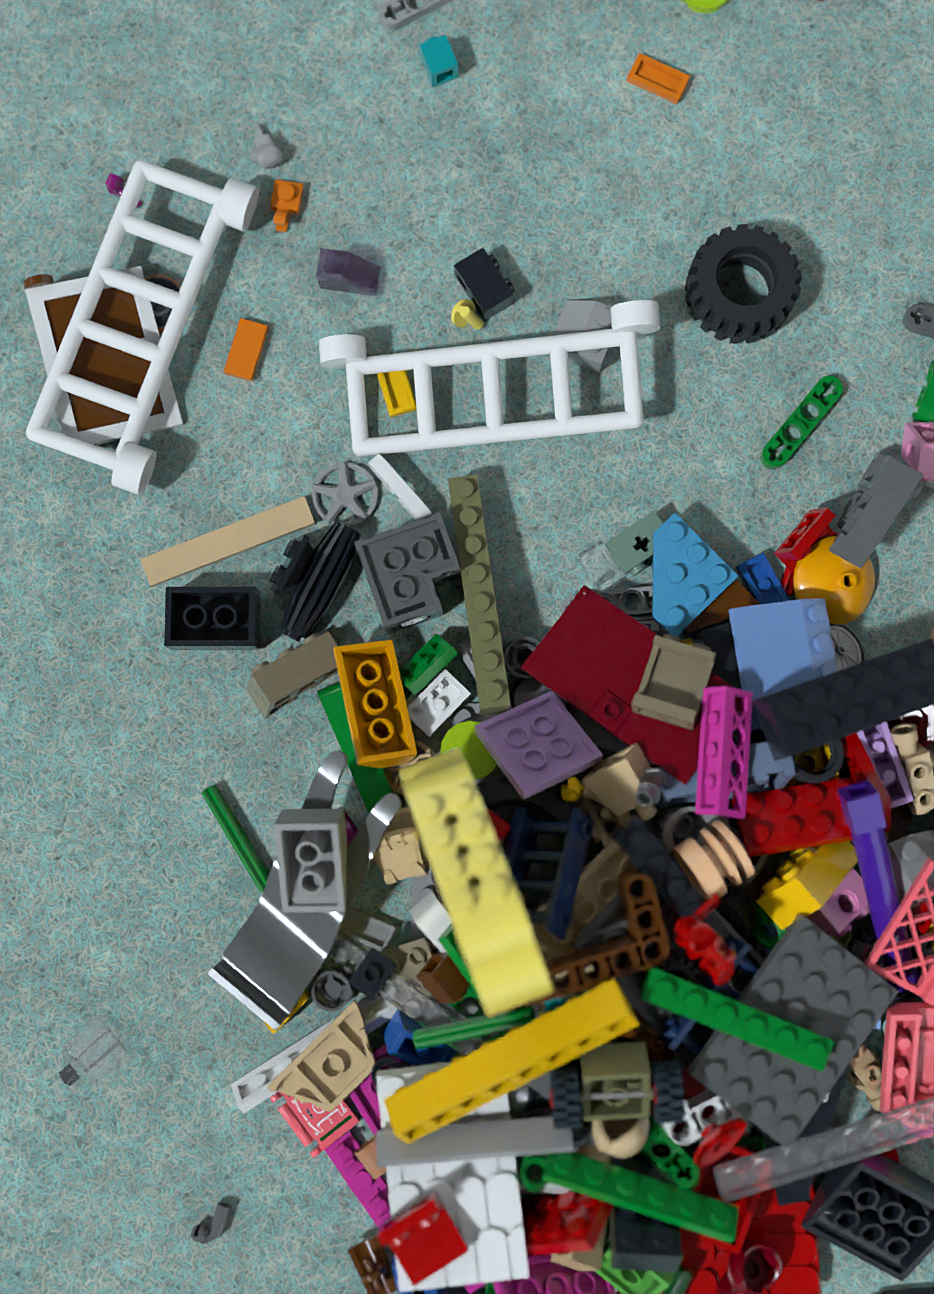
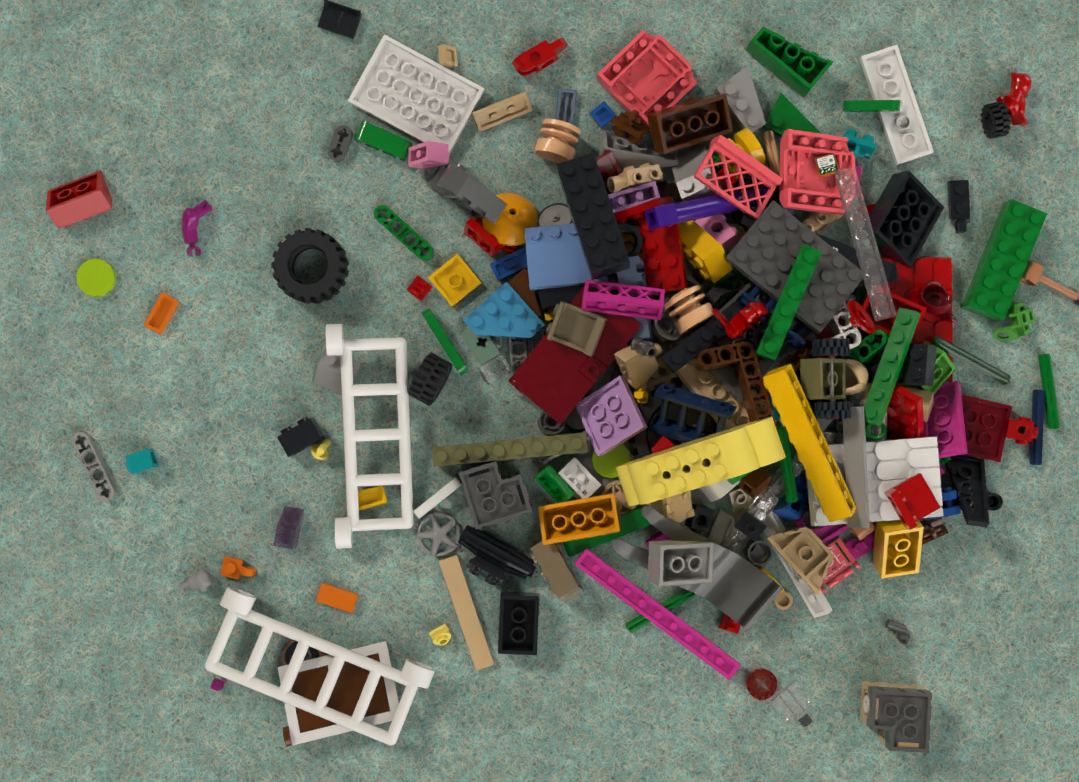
camera: 90 degrees left, 5 degrees up
(80, 1230) = (900, 714): none -> dark grey piece
(111, 1003) = (770, 682): none -> clear red gear
(192, 504) = (440, 635): none -> light yellow plate
(216, 946) = (729, 624): none -> red tile
(230, 833) = (657, 613): none -> dark pink plate
(256, 1033) = (783, 601): none -> tan tile
(344, 1217) = (897, 548): none -> yellow brick
(388, 905) = (706, 518): none -> black brick
(581, 467) = (430, 379): none -> black tyre
(638, 490) = (445, 342): none -> green beam
(718, 450) = (419, 288): none -> red tile
(733, 502) = (454, 280): none -> yellow tile
(795, 109) = (189, 225): none -> magenta arm

